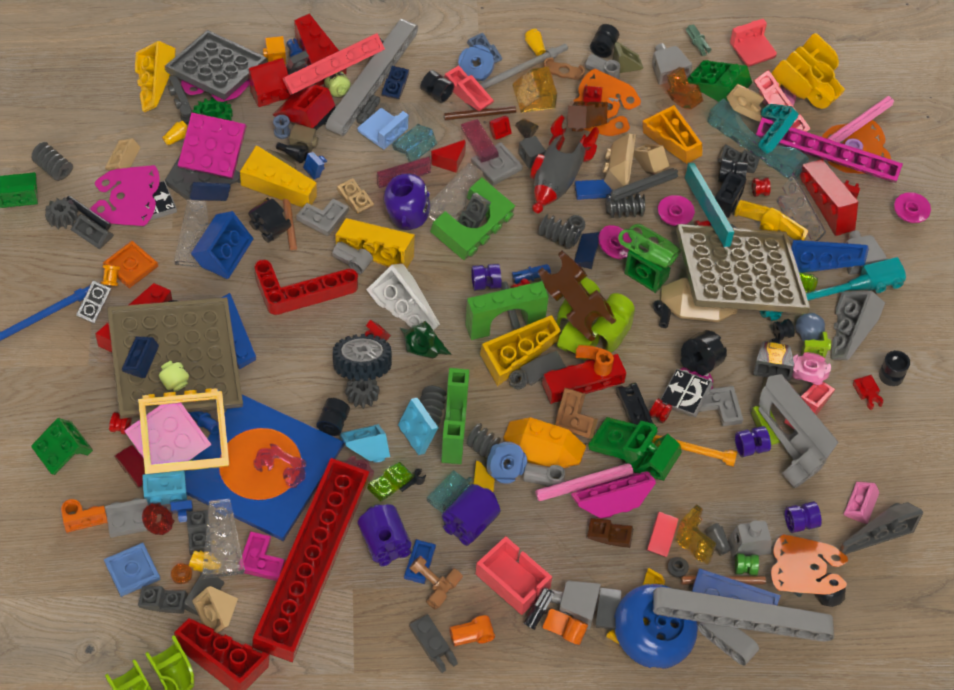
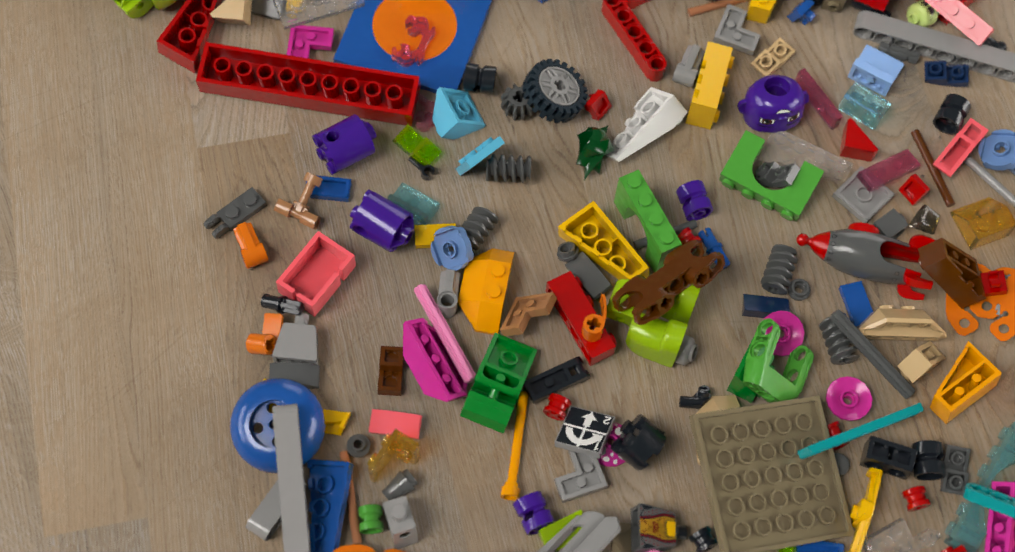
camera: 80 degrees right, 10 degrees up
(455, 416) = (519, 192): bright green arch -> none

